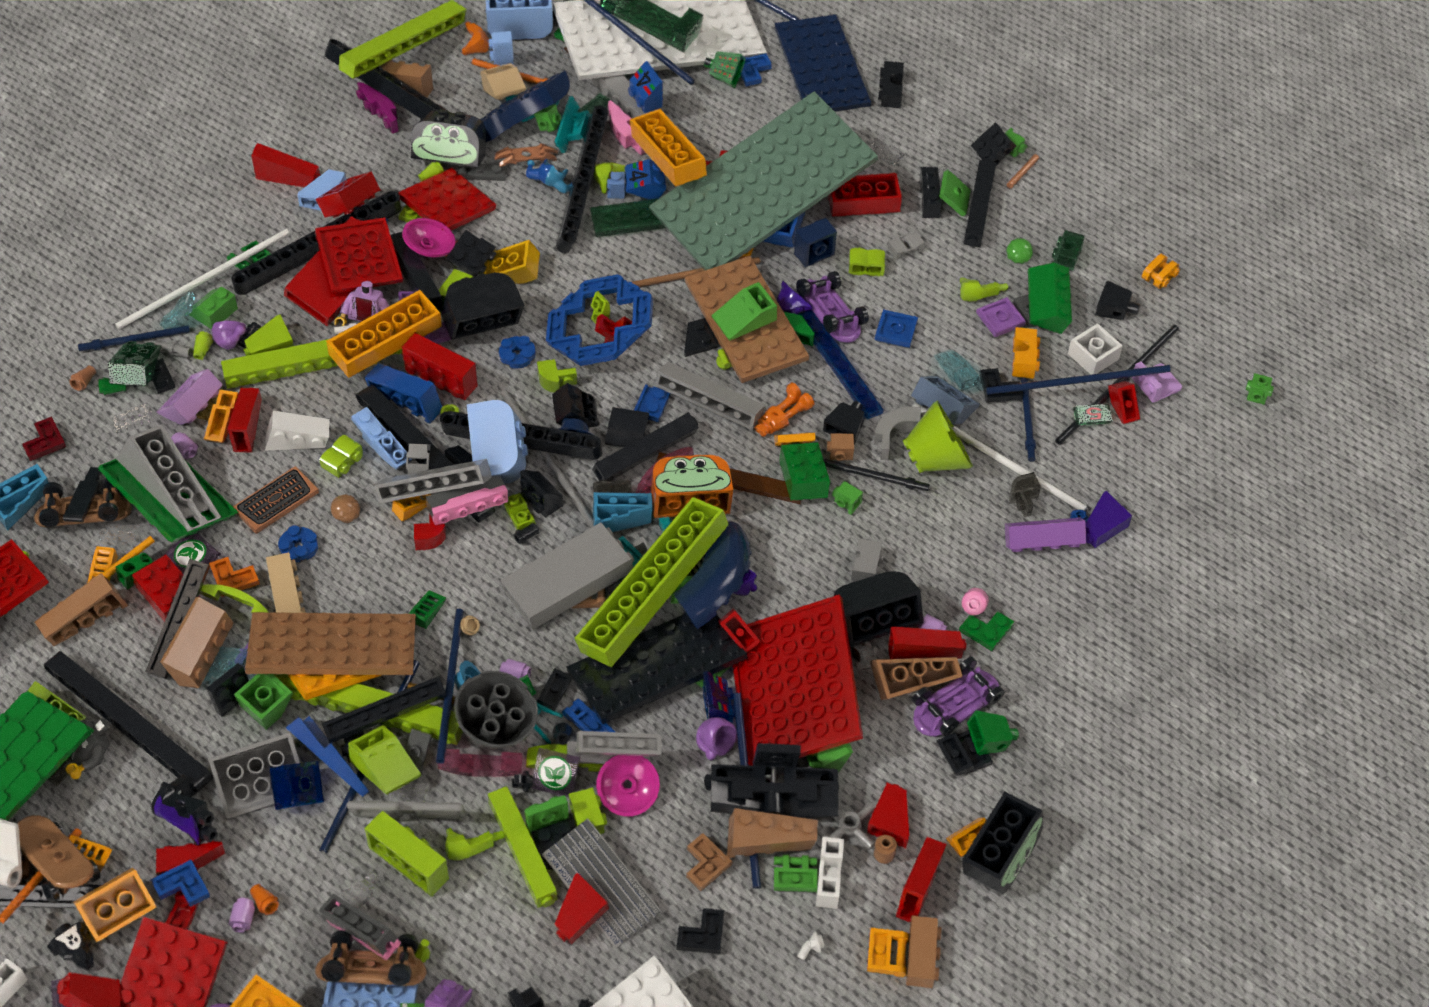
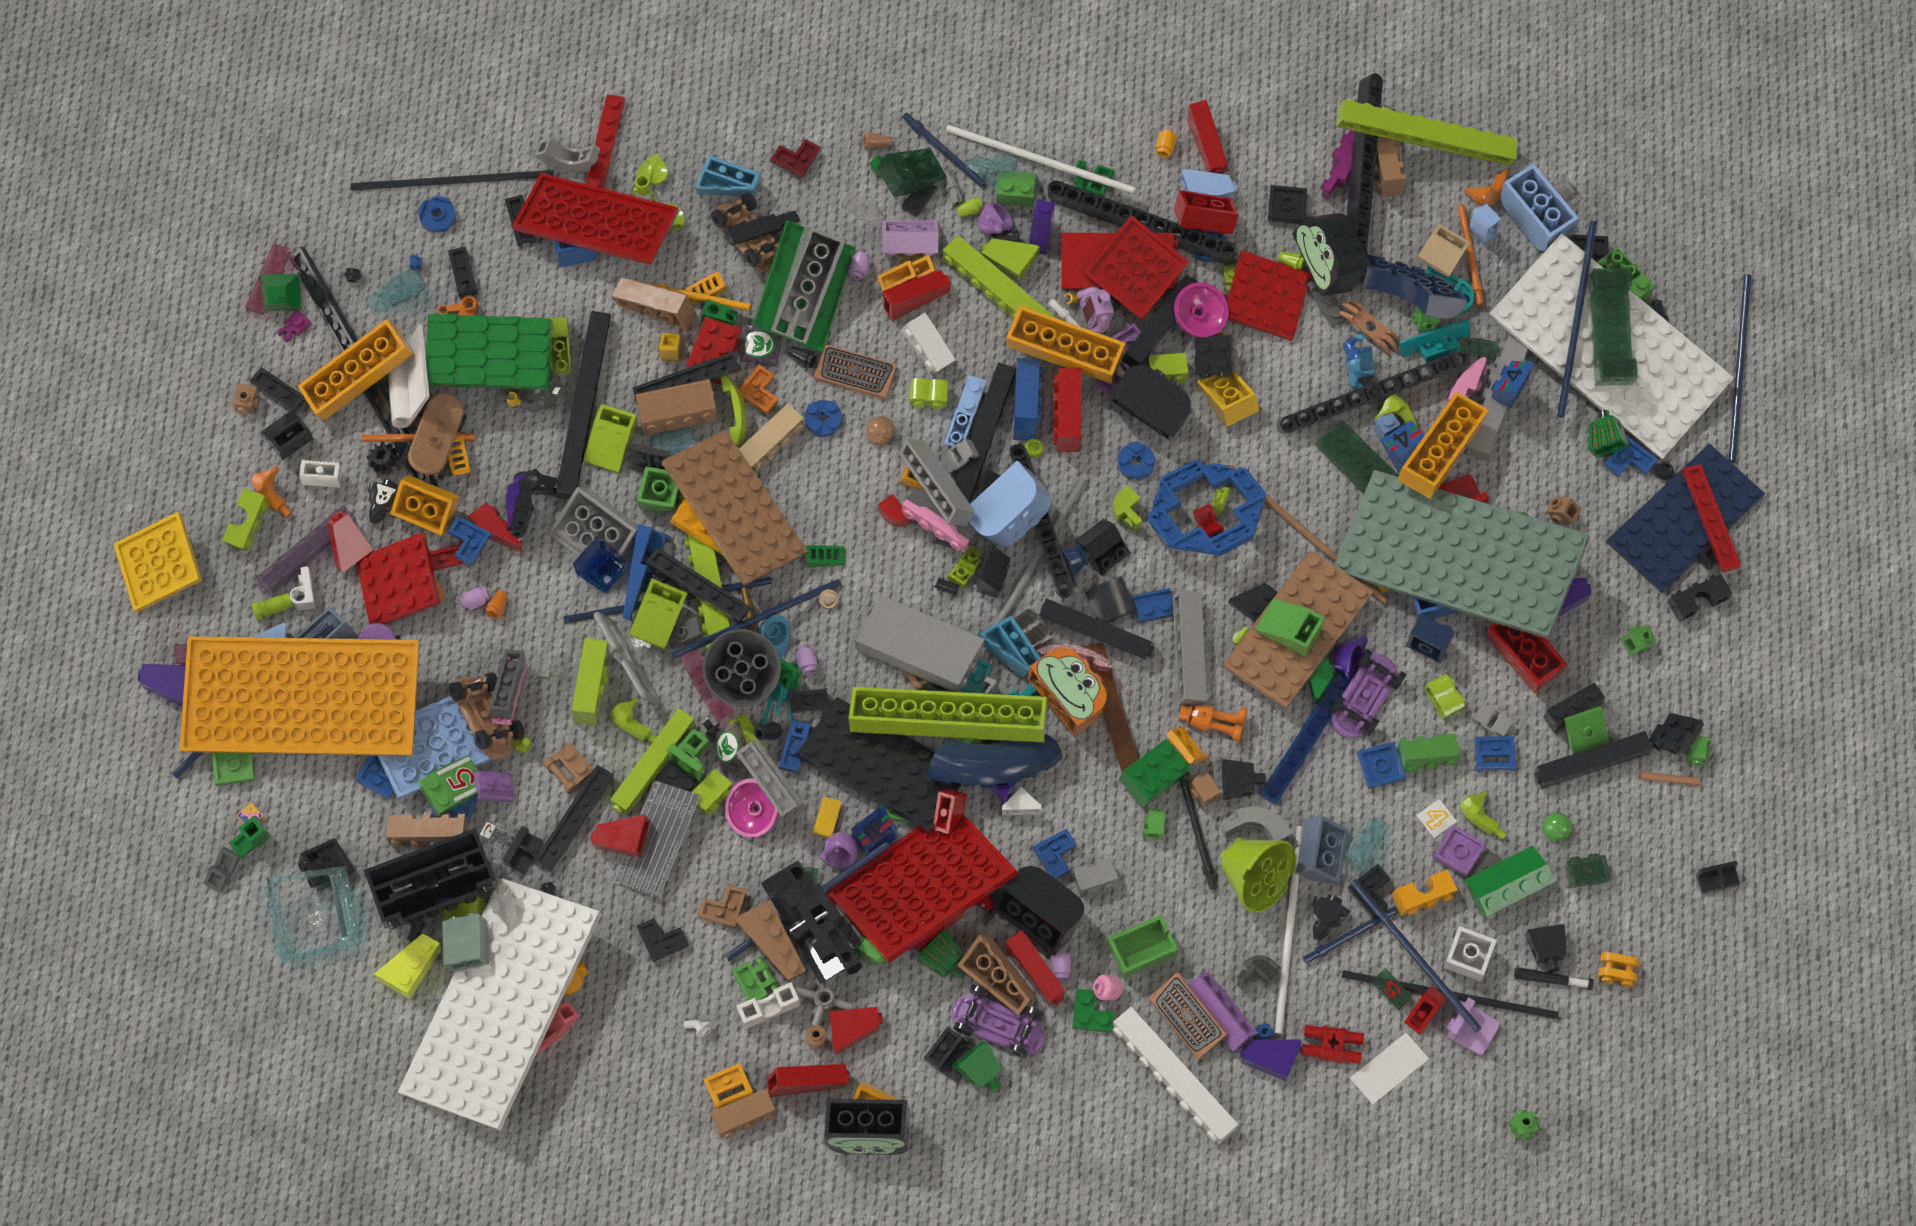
camera: 60 degrees right, 15 degrees up
(37, 926) = (390, 456): none -> black gear
(132, 622) = (669, 346): none -> yellow slope
(179, 713) = (610, 438): none -> lime slope
(229, 528) = (803, 356): none -> black cone
(262, 299) = (1042, 225): none -> dark purple slope
(264, 196) = (1165, 143): none -> light orange brick
(382, 153) = (1287, 204): none -> black plate
(473, 917) = (573, 762): none -> medium nougat plate
(528, 796) = (692, 738): none -> bright green brick
(530, 946) = (574, 818): none -> black plate
(674, 734) = (827, 817): none -> yellow tile
(764, 116) = (1563, 510): none -> medium nougat brick
(766, 579) = (1021, 804): none -> white slope
(776, 56) = (1664, 470): none -> black plate
(819, 580) = (1050, 853): none -> blue plate
(837, 45) = (1711, 518): none -> red plate
(863, 63) = (1707, 557): none -> black plate
(873, 709) = (942, 956): none -> green torso
(901, 130) = (1638, 639): none -> bright green brick
(907, 291) = (1428, 752): none -> bright green wedge
(930, 252) = (1495, 747): none -> blue plate
(954, 560) = (1142, 946): none -> bright green piece
(962, 320) = (1436, 818): none -> white sticker
(1002, 424) = (1327, 915): none -> black rock
(1035, 558) = (1188, 1015): none -> tile
(1082, 596) = (1174, 1075): none -> white brick
(1117, 475) = (1325, 1052): none -> red pin
(1121, 183) = (1717, 877): none -> black panel
(1135, 323) = (1551, 978): none -> black piece
(1157, 453) = (1389, 1068): none -> white sticker

